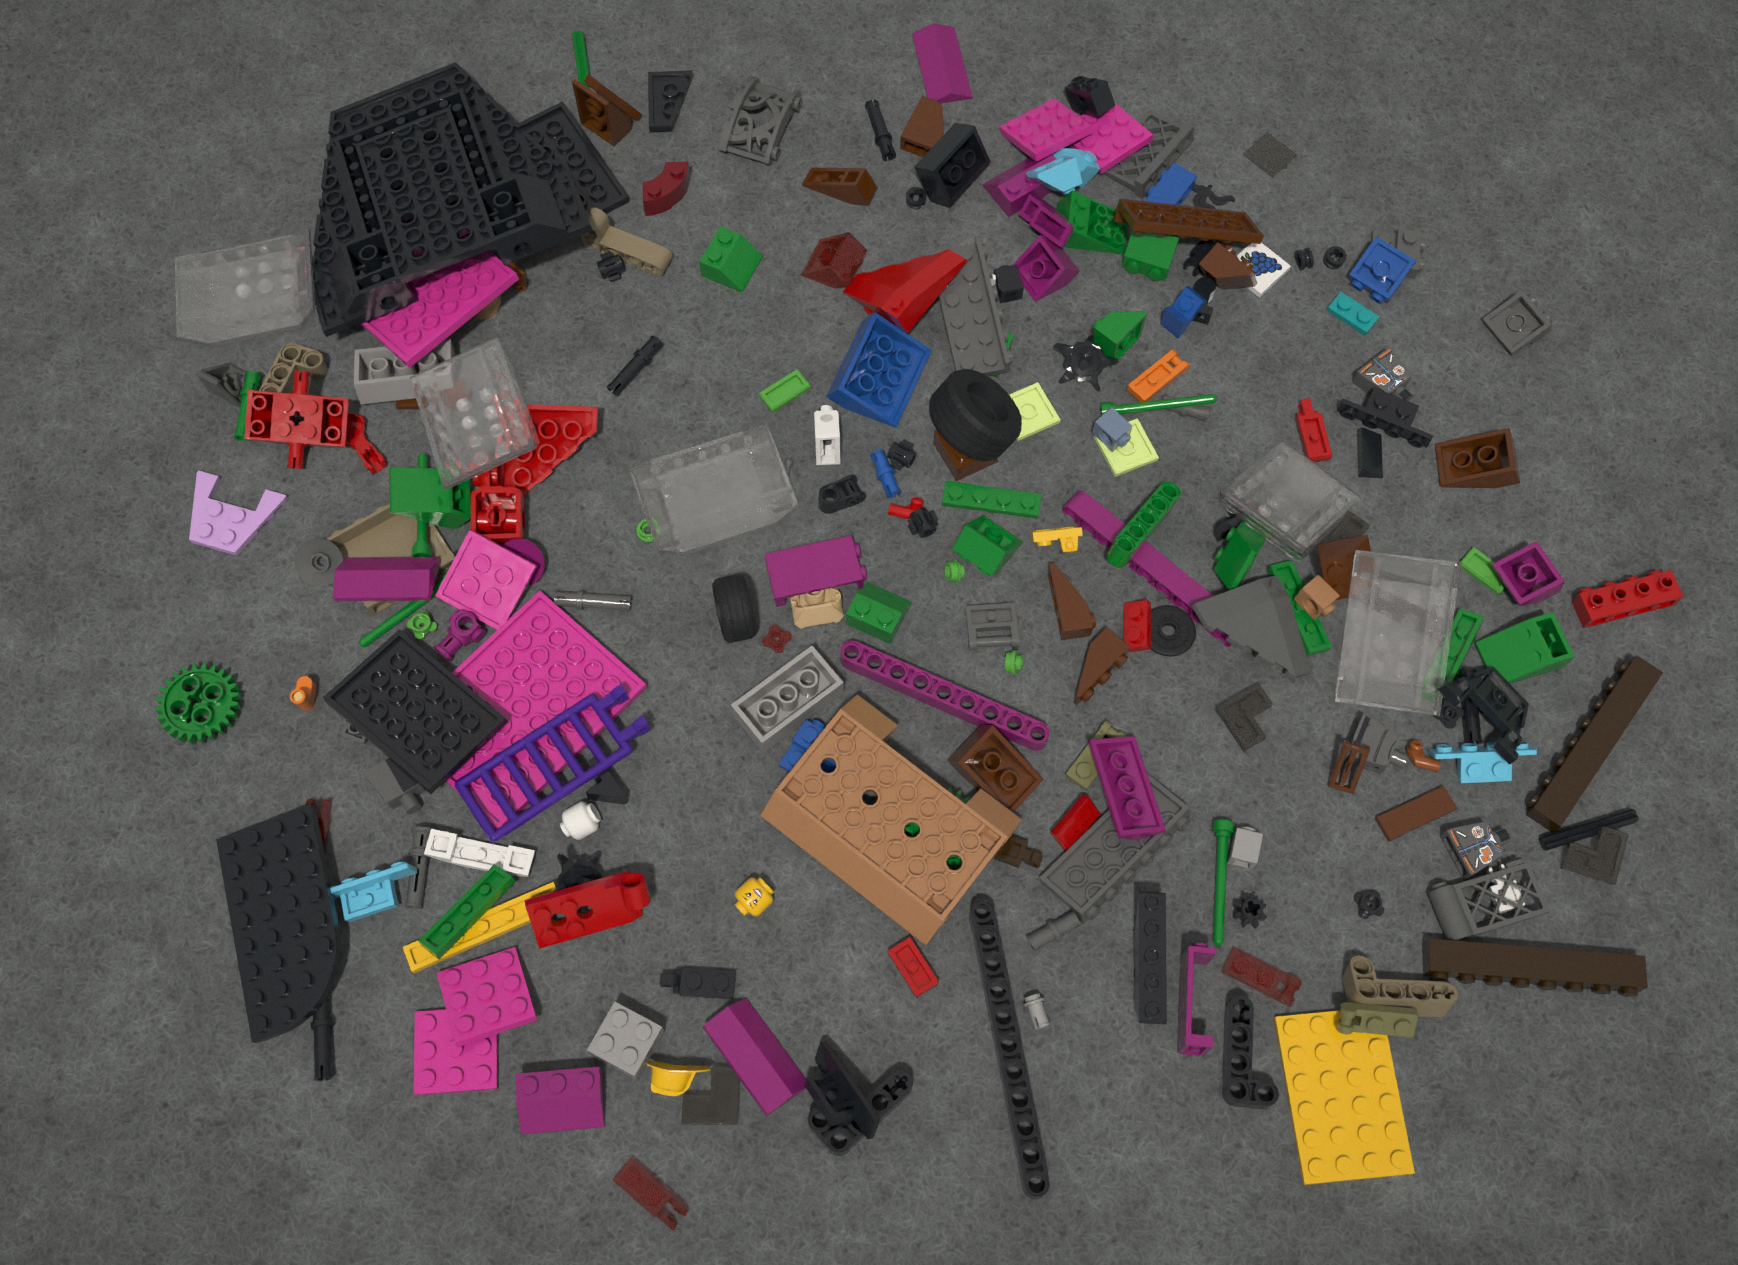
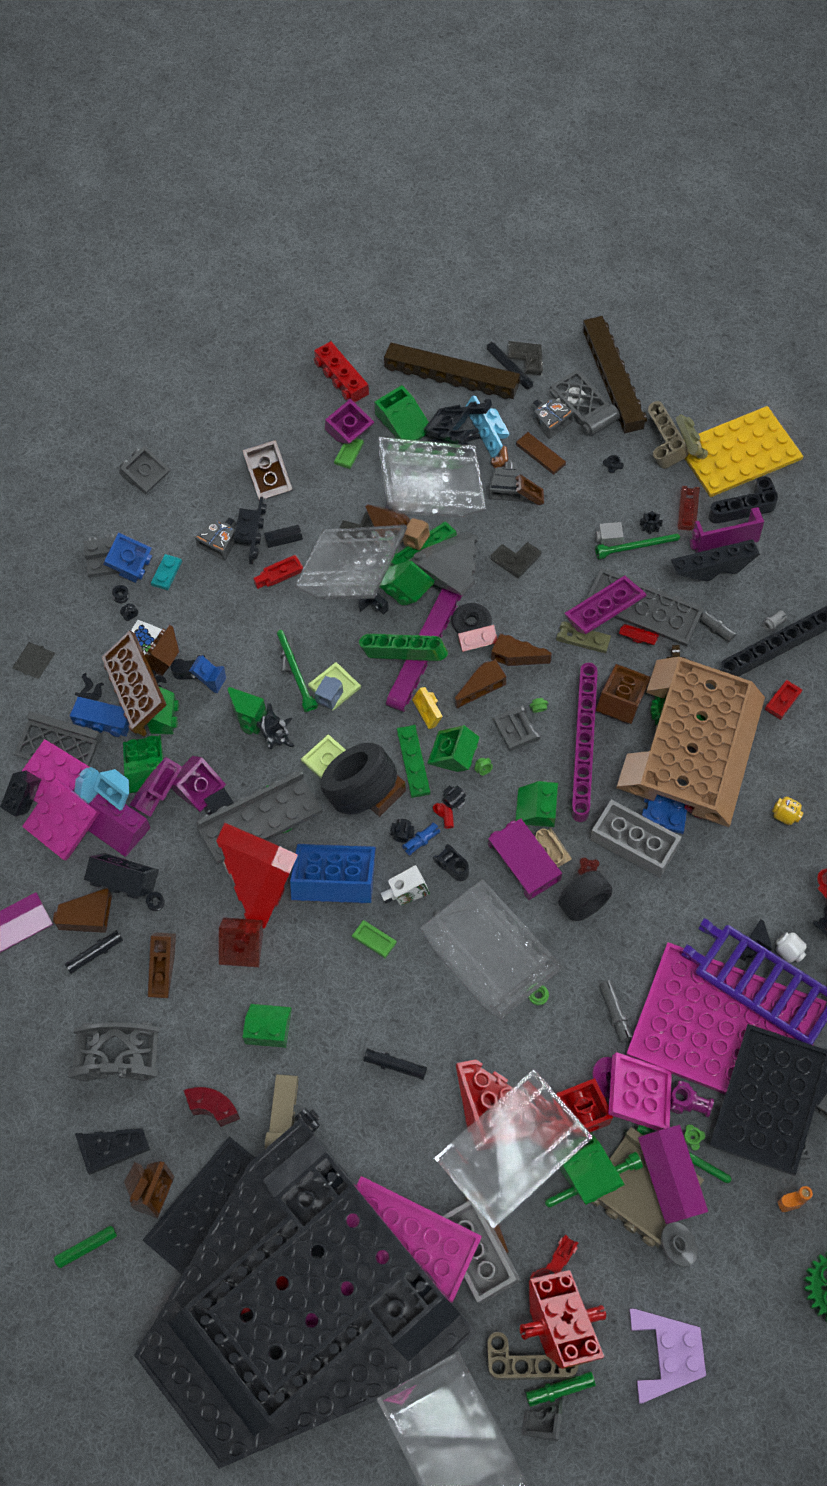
camera: 105 degrees left, 5 degrees down
(1157, 376) = (267, 680): orange plate -> none

